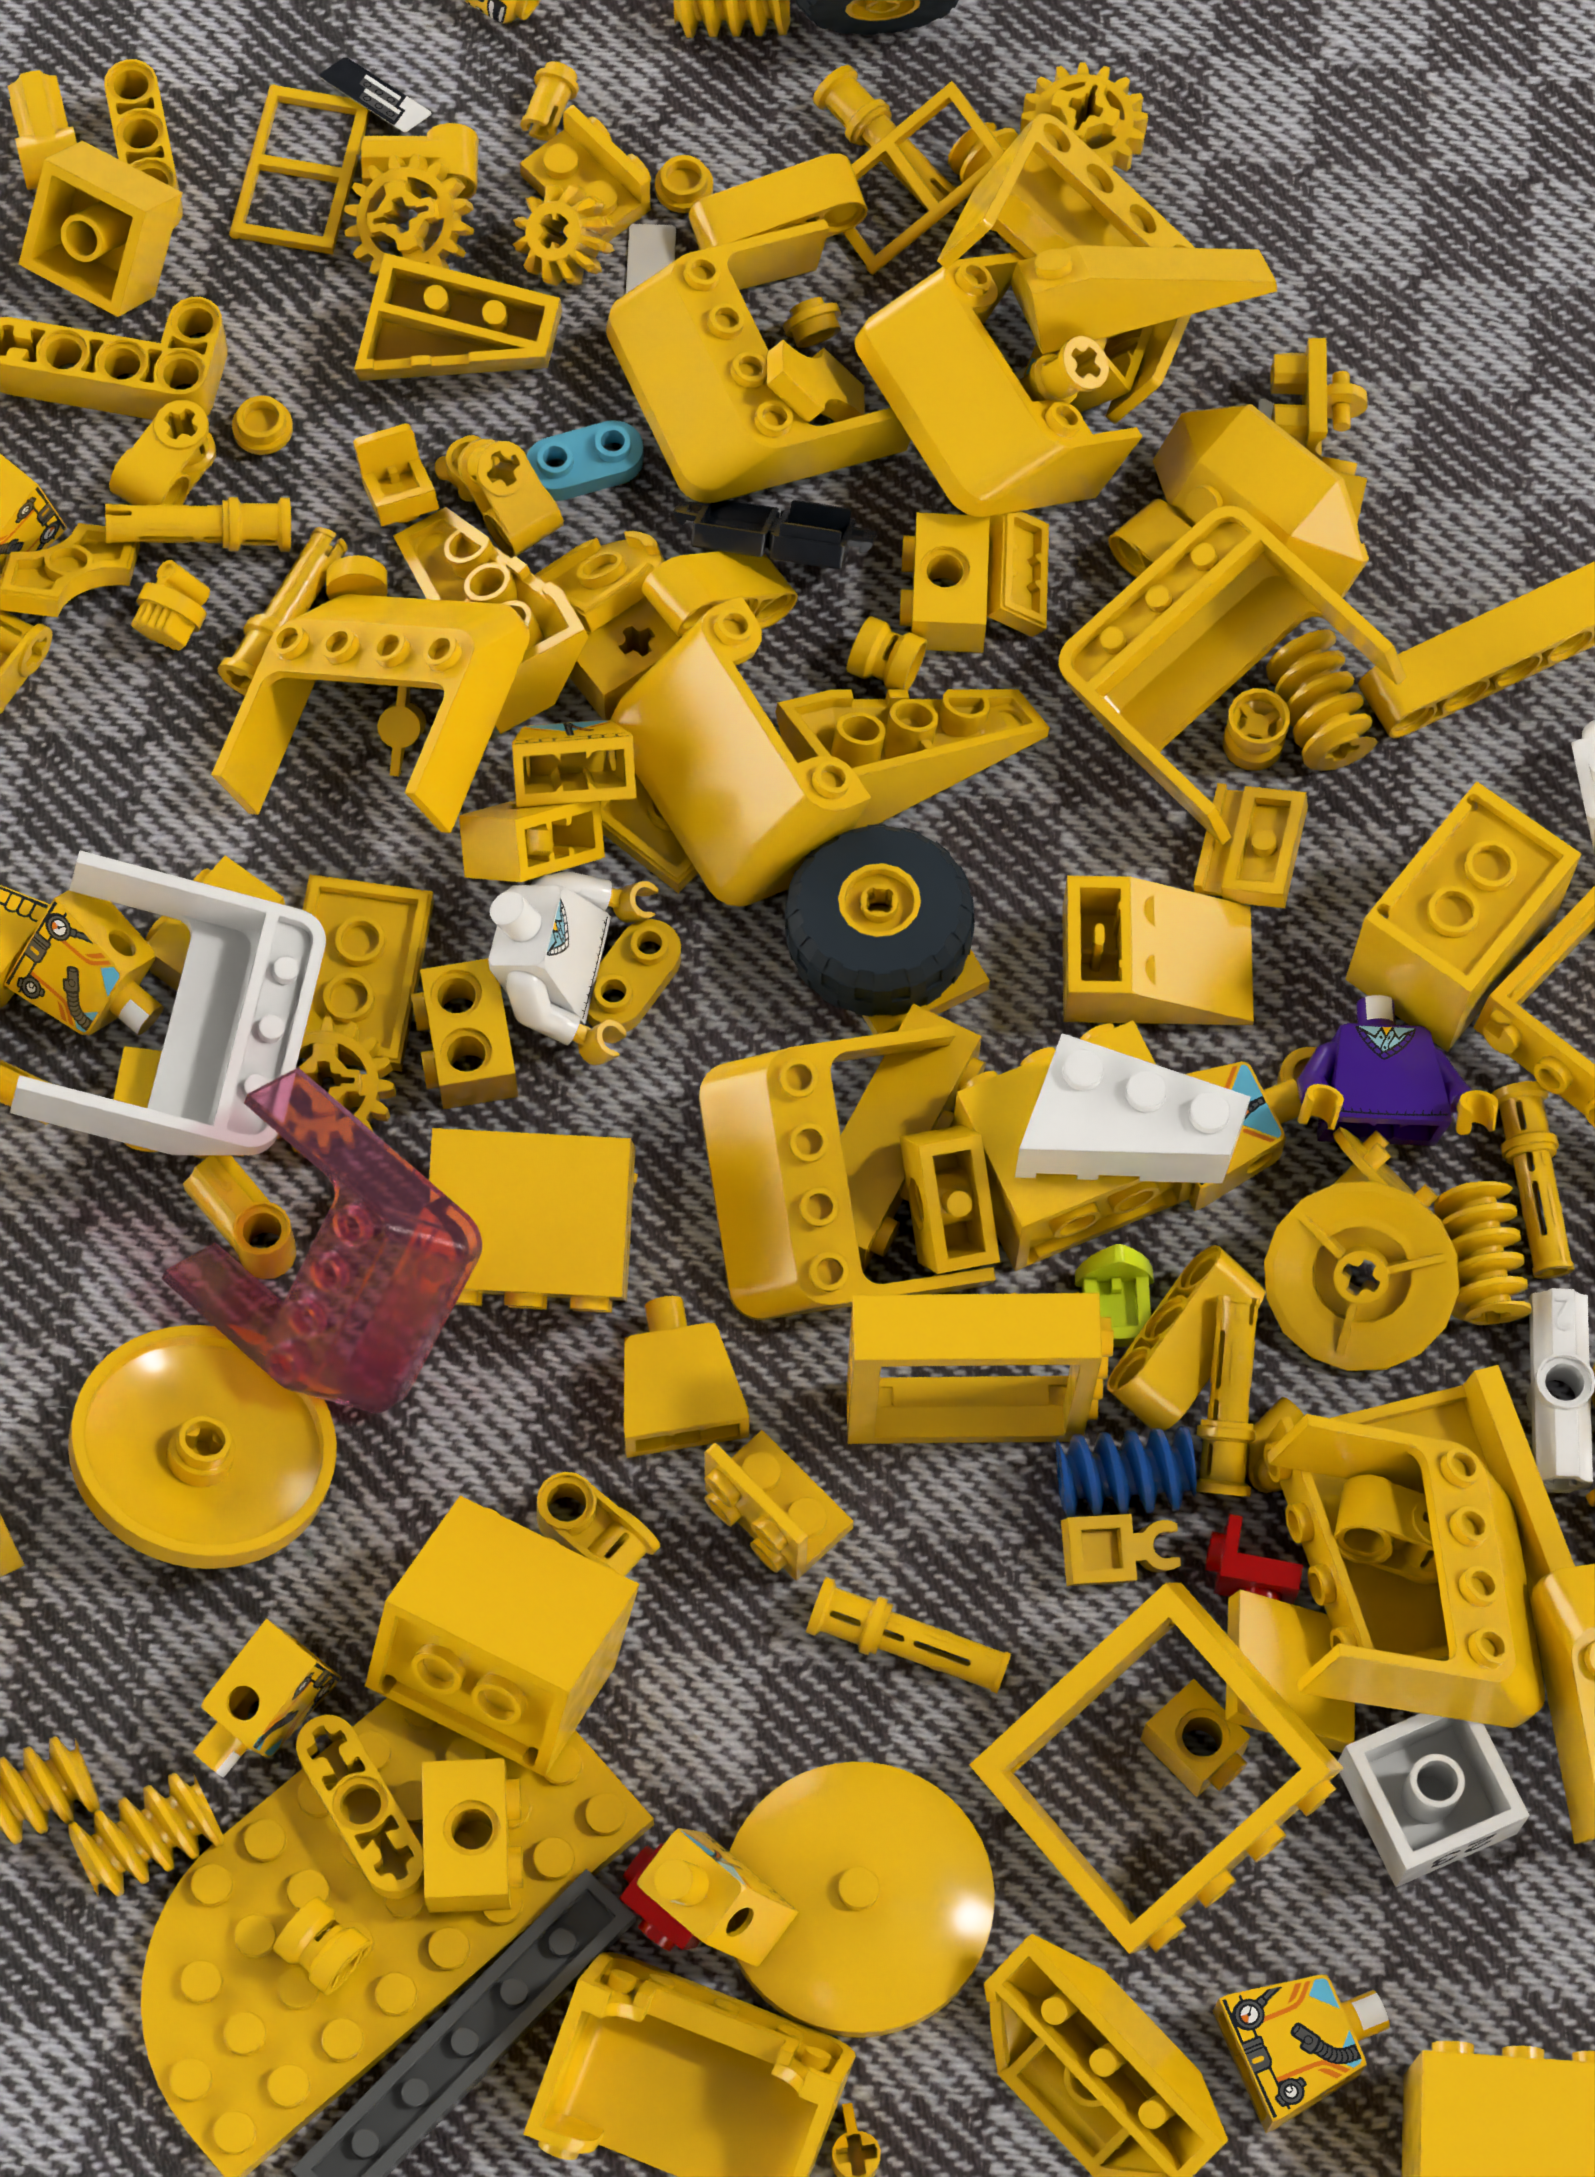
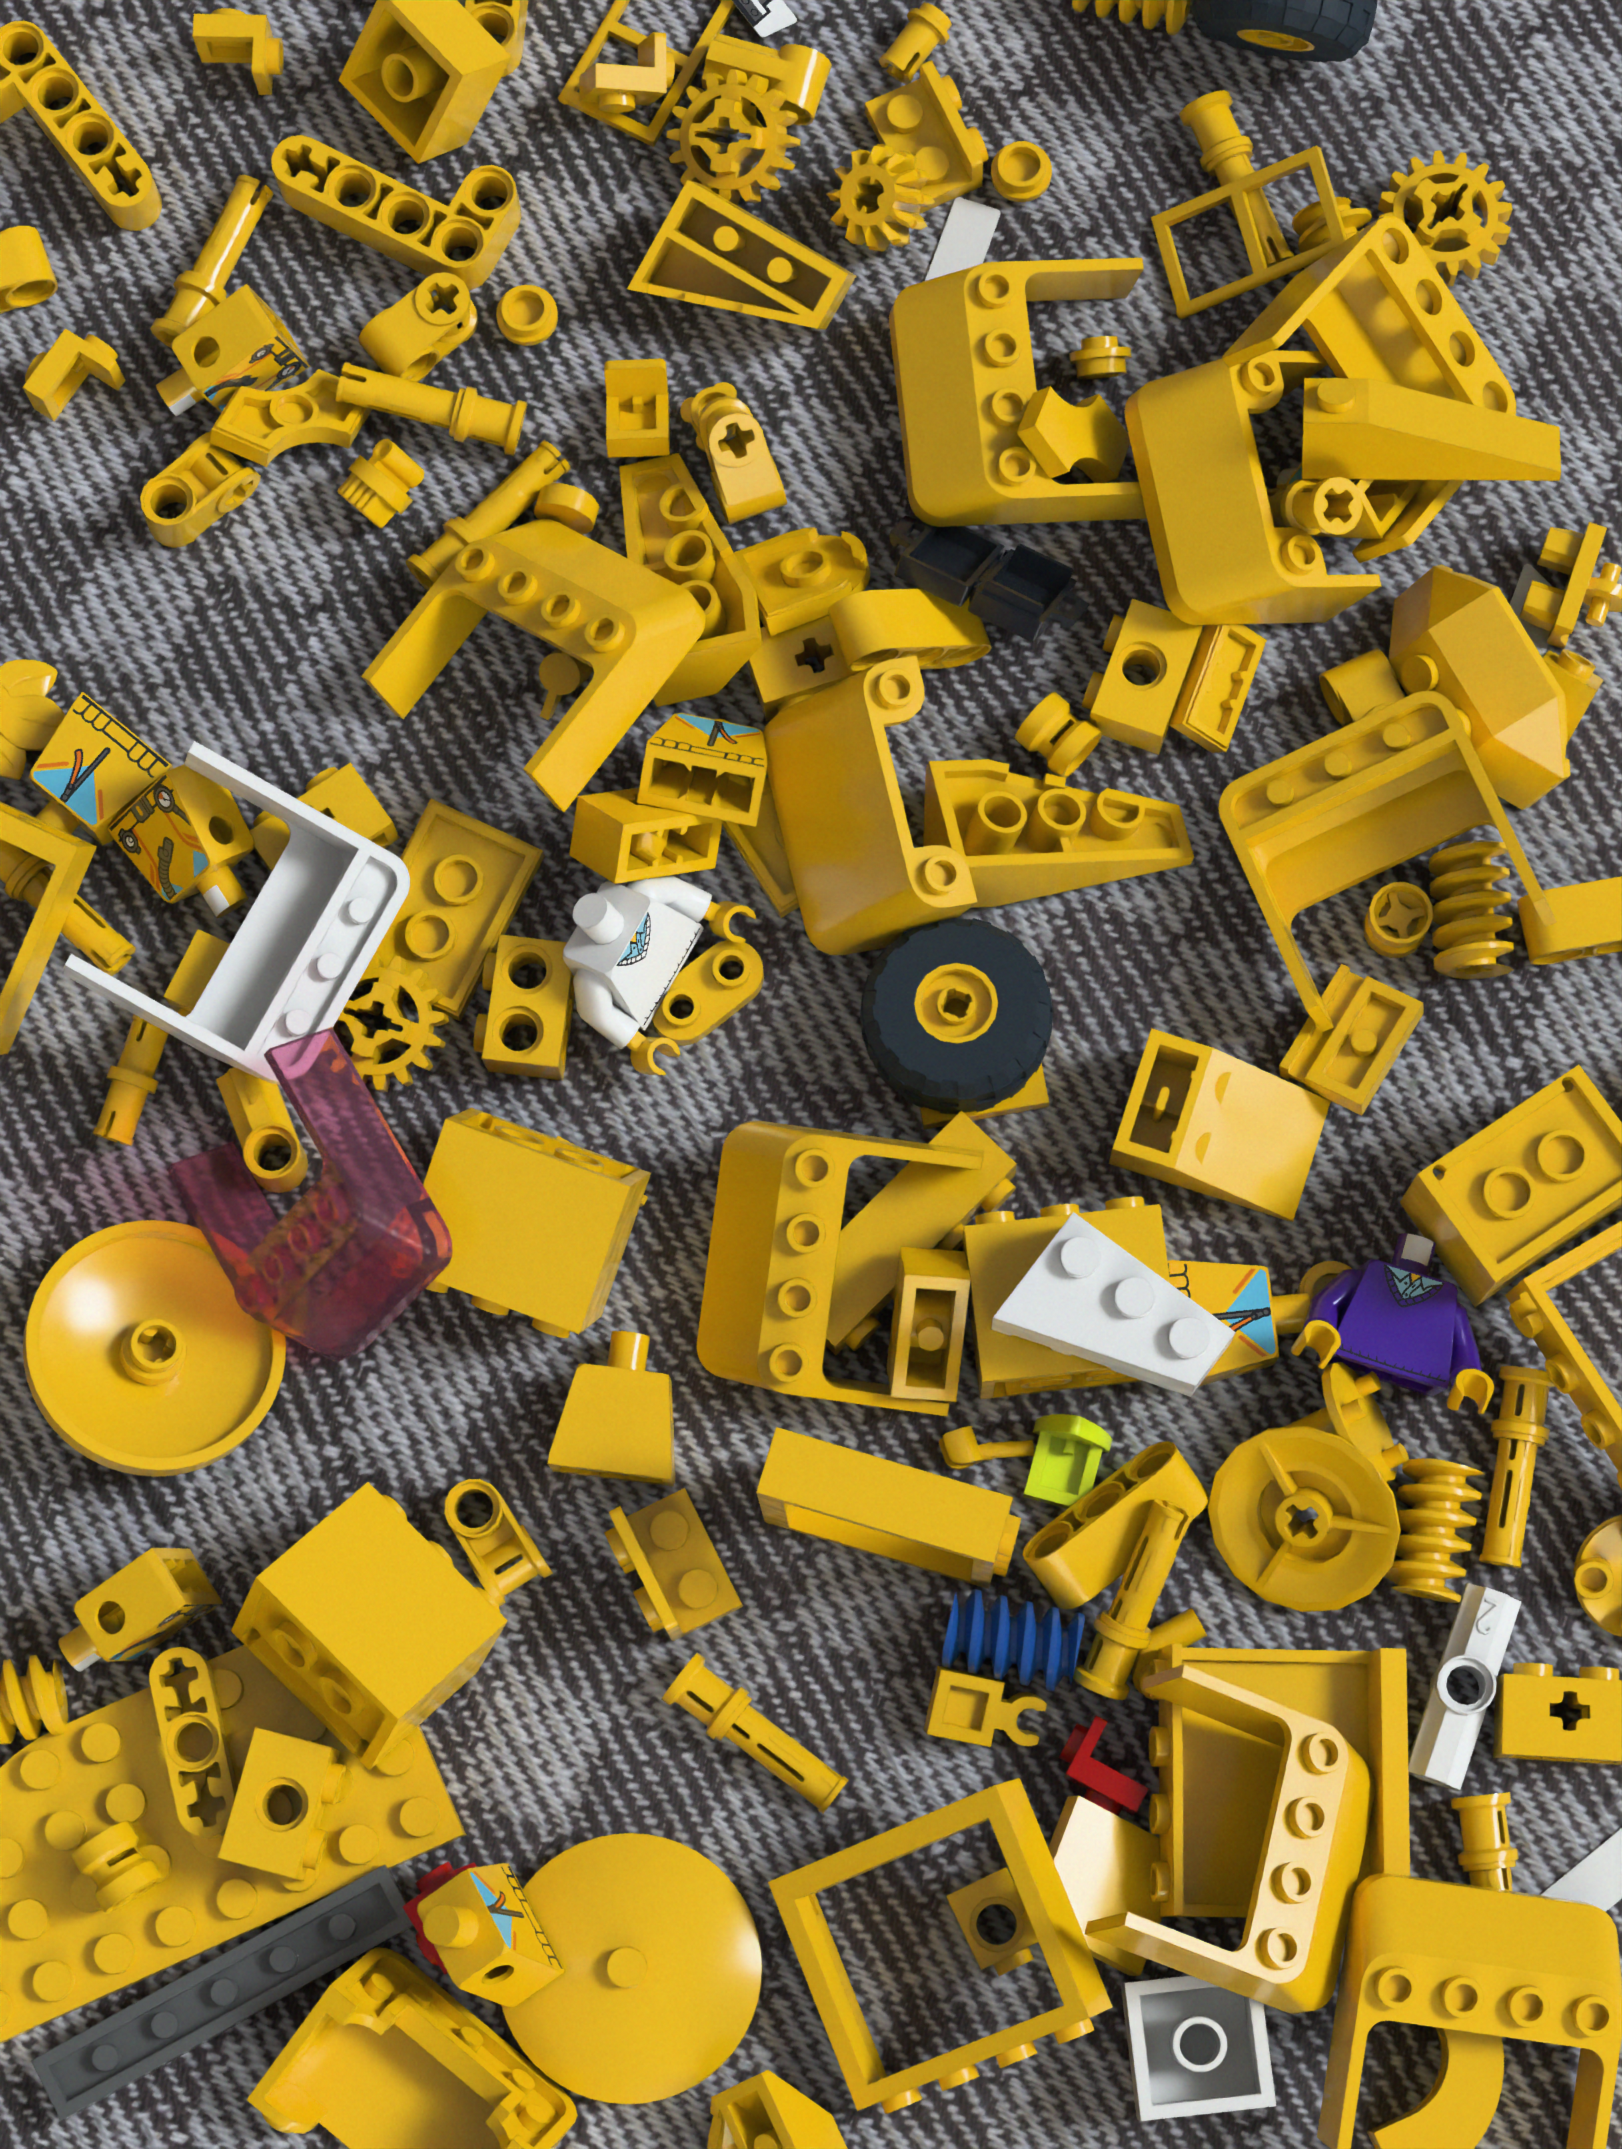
camera: 25 degrees right, 10 degrees up
(99, 1210) = (131, 1082): none -> yellow pin
(296, 199) = (624, 86): none -> yellow bracket
(587, 462) = (830, 445): medium azure plate -> none
(782, 200) = (1105, 226): yellow beam -> none
(1385, 1528) = (1234, 1777): yellow piece -> none

